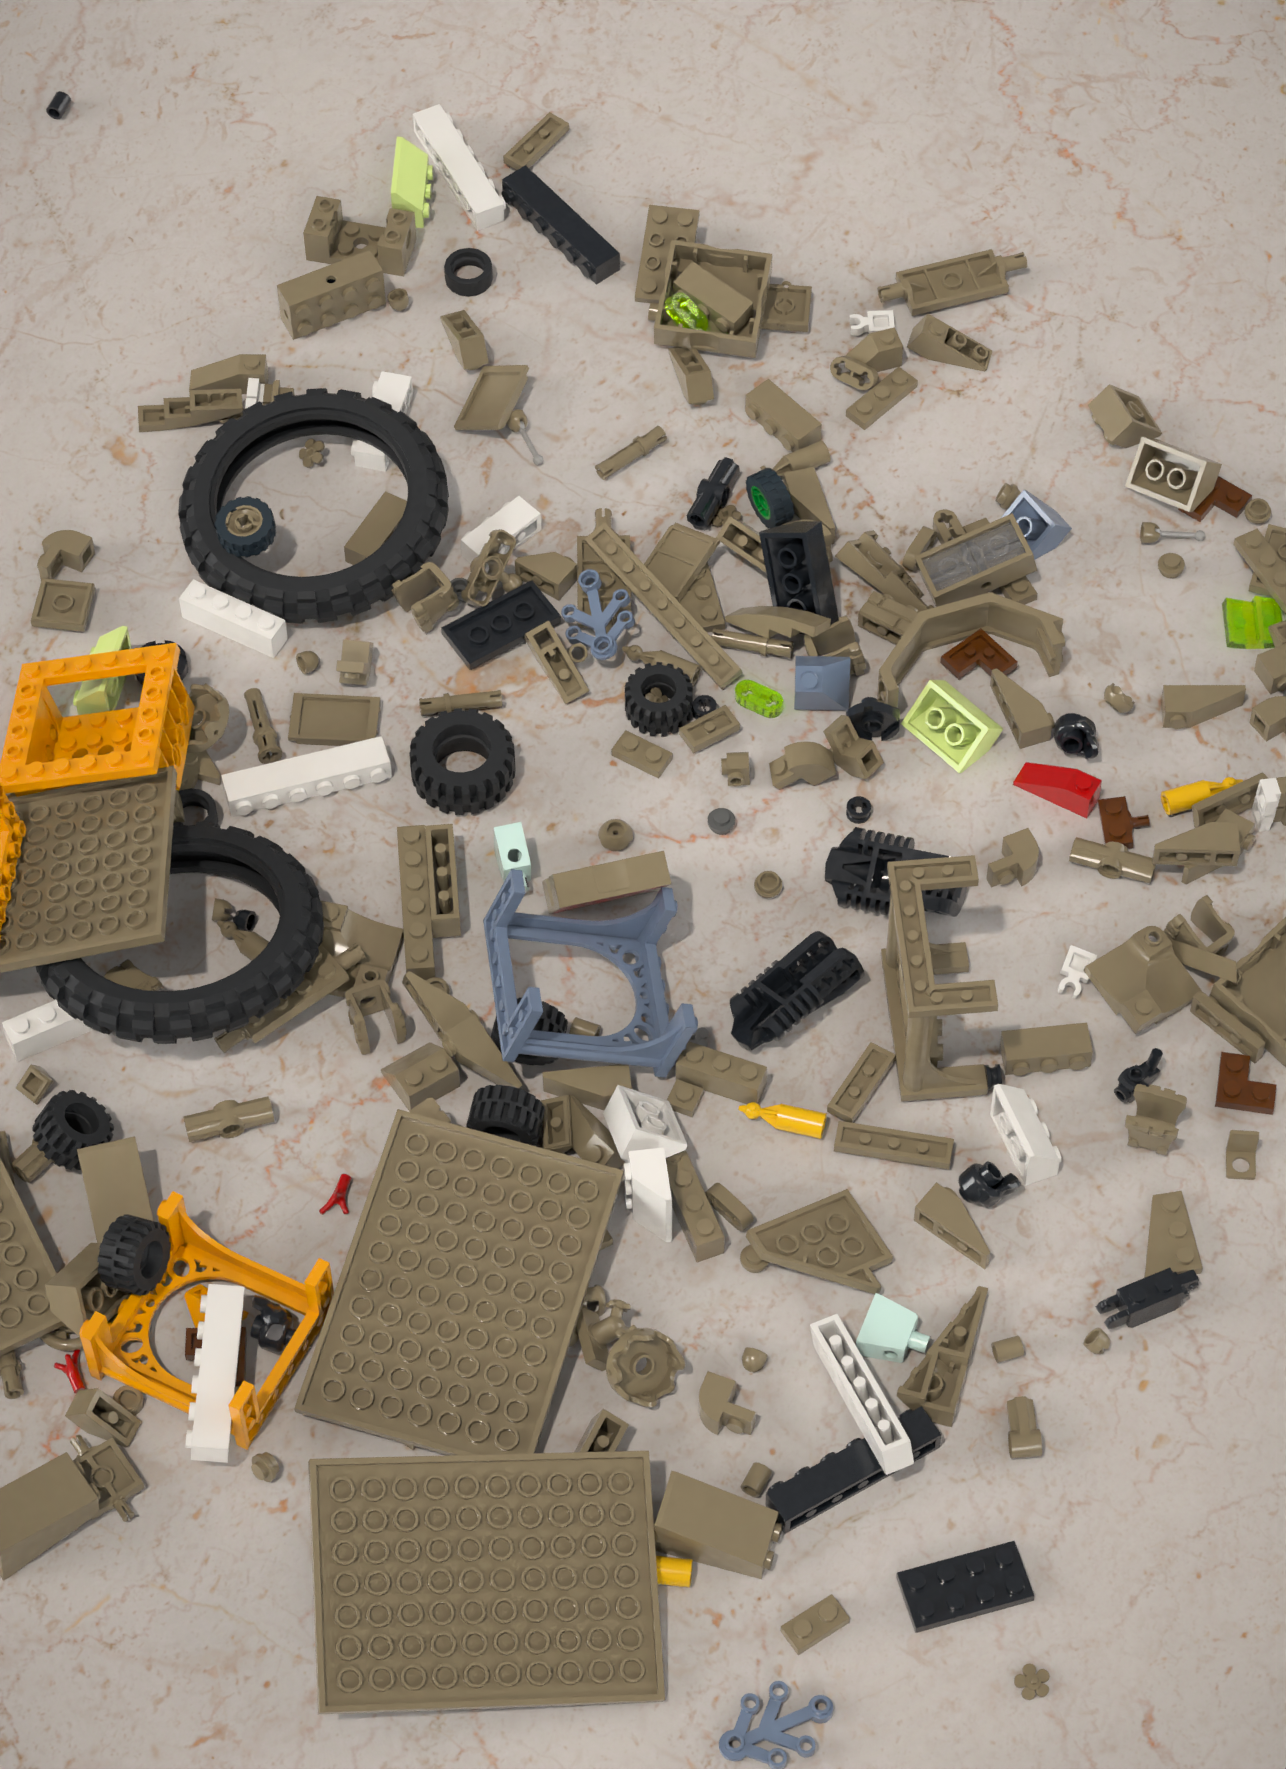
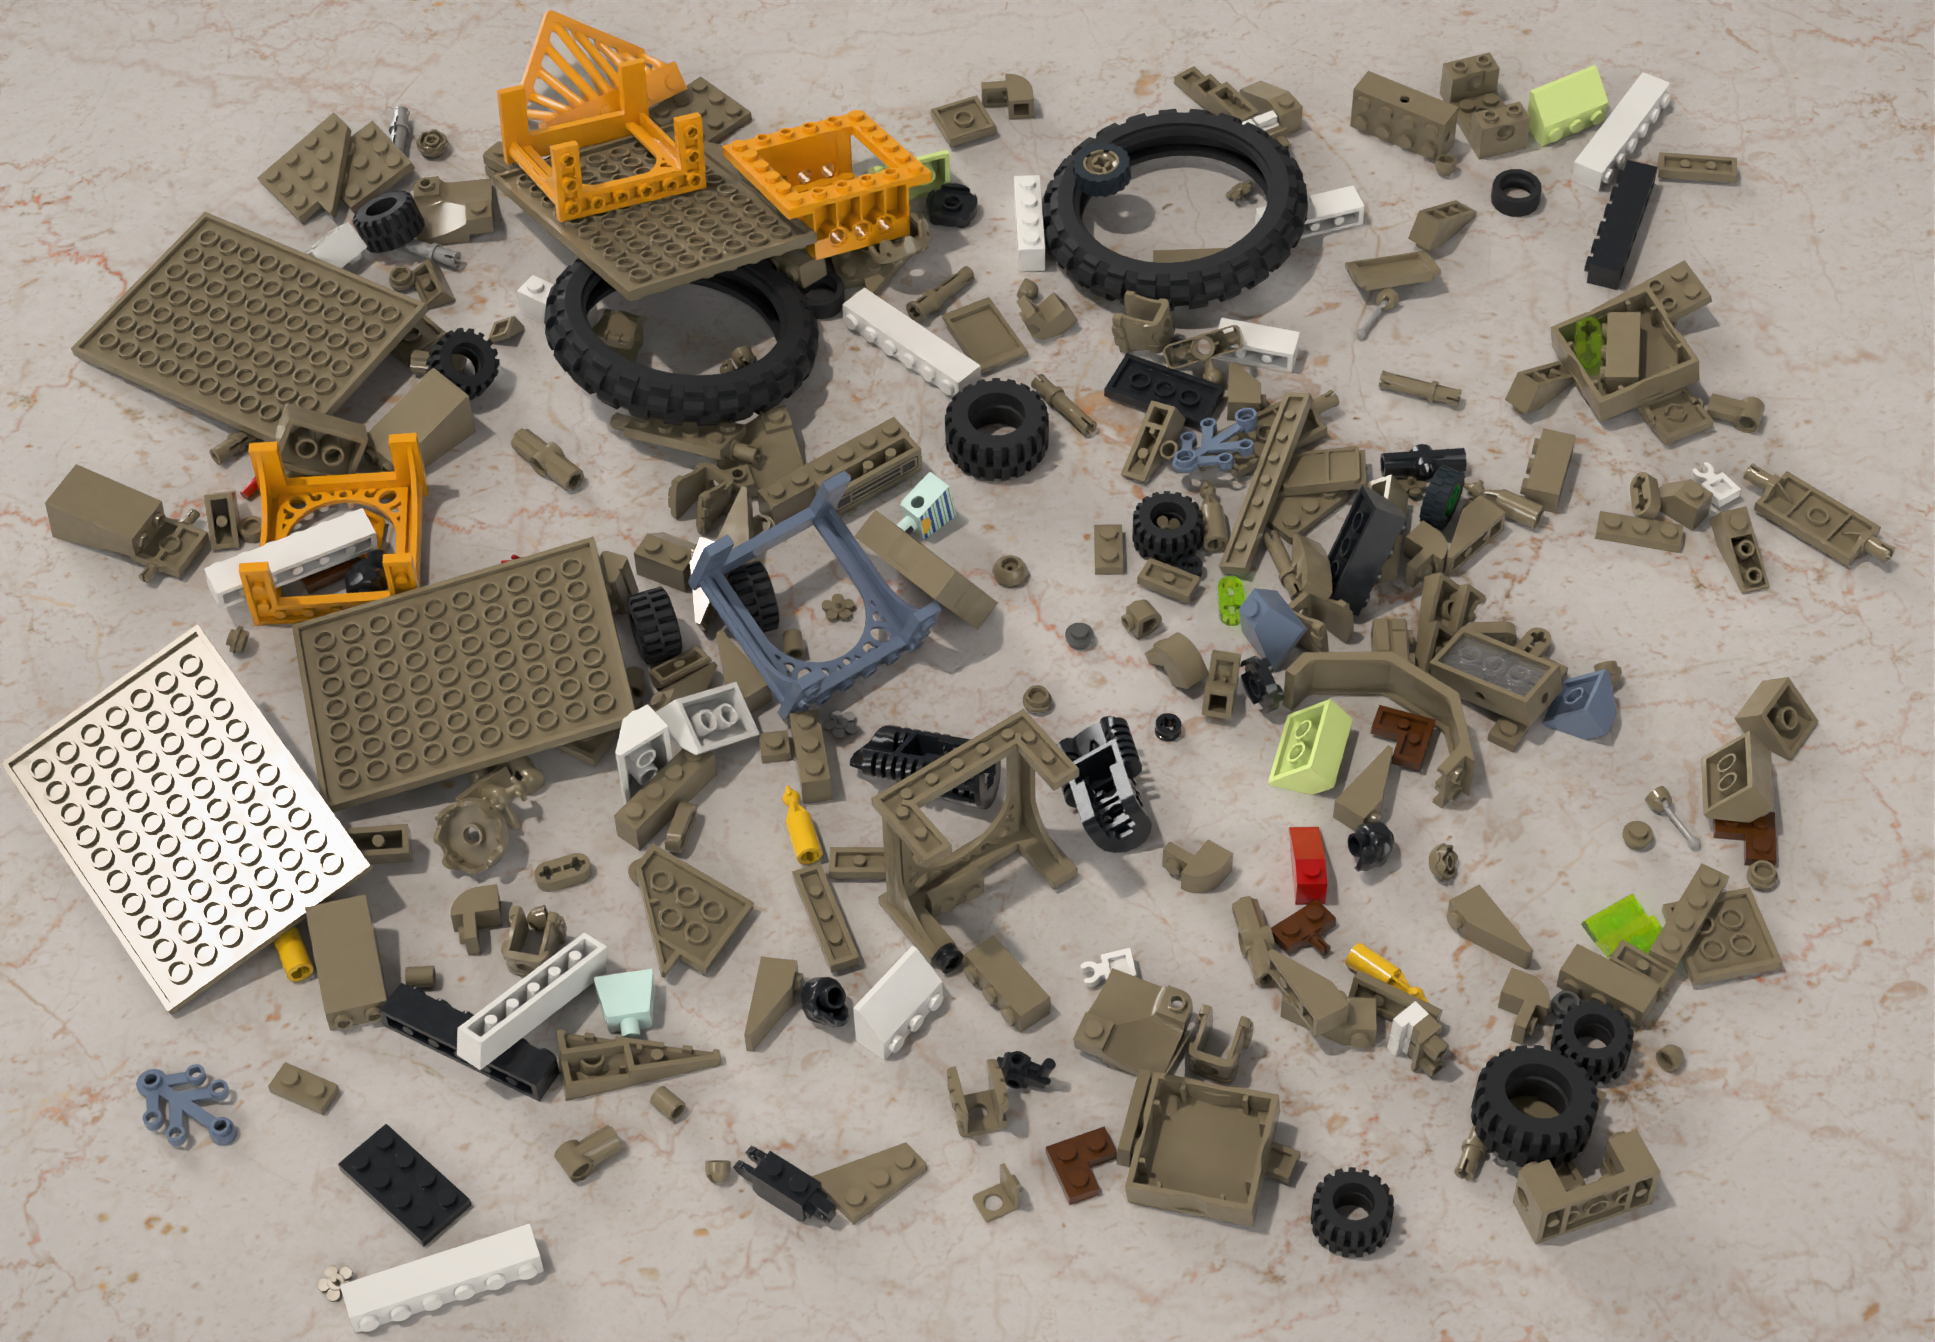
camera: 60 degrees right, 5 degrees down
(134, 1254) = (349, 464): black tyre -> none
(564, 979) = (838, 607): none -> dark tan plant
(720, 1321) = (563, 872): none -> dark tan beam
(788, 1353) = (524, 963): none -> dark tan piece
(815, 264) = (1744, 413): none -> dark tan piece
(1083, 1596) = (442, 1278): none -> white brick

